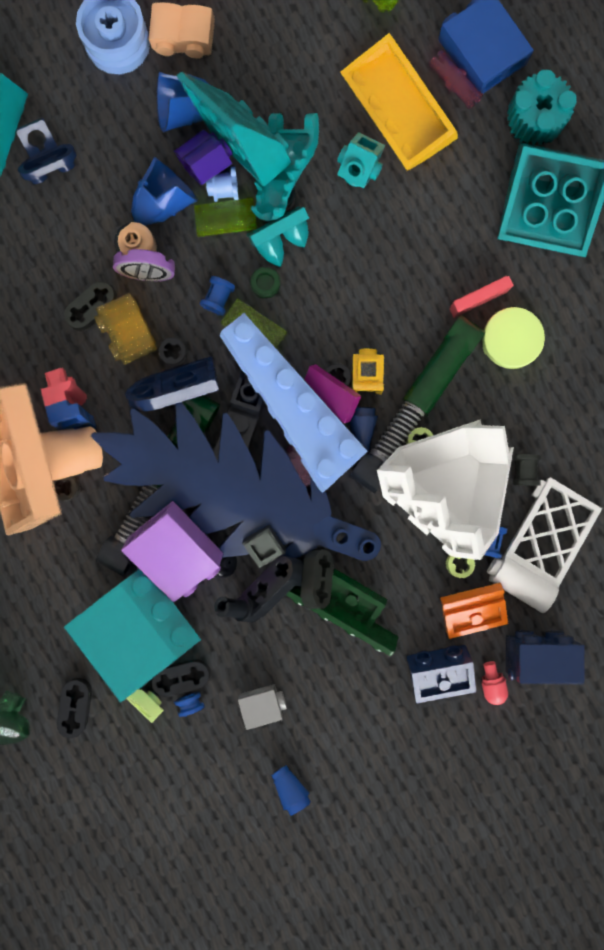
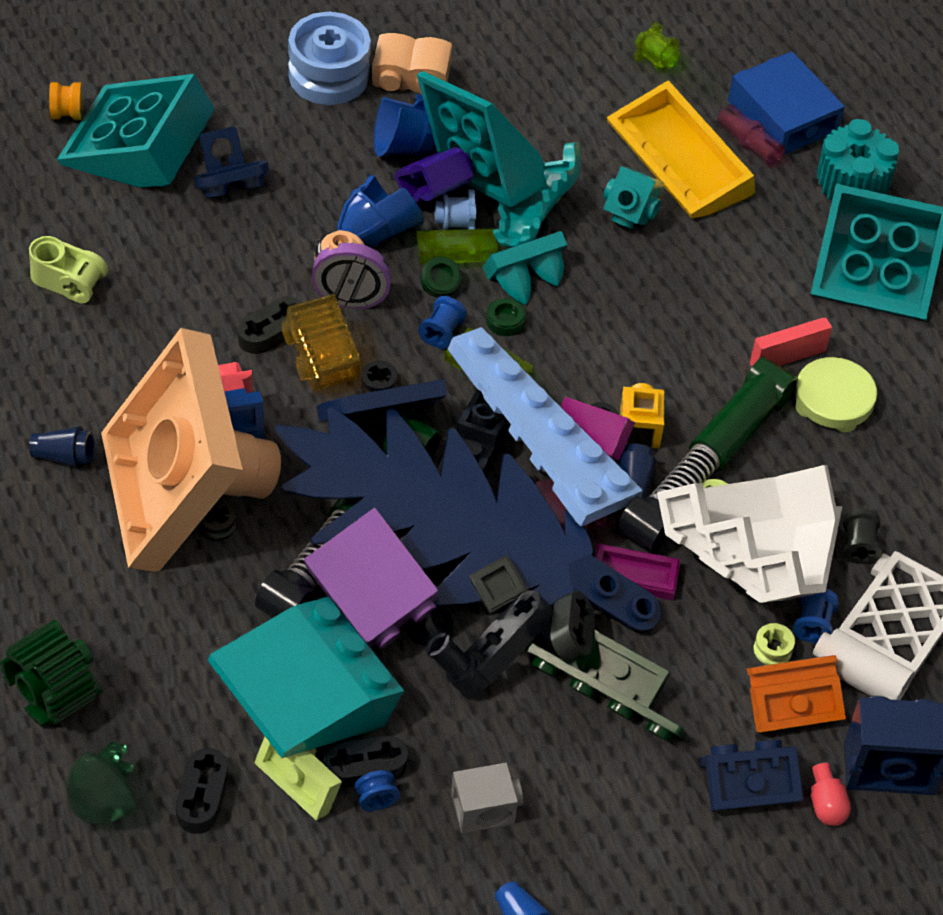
camera: 10 degrees left, 35 degrees down
(214, 250) = (440, 277): none -> dark green tile
(362, 508) = (650, 571): none -> magenta tile

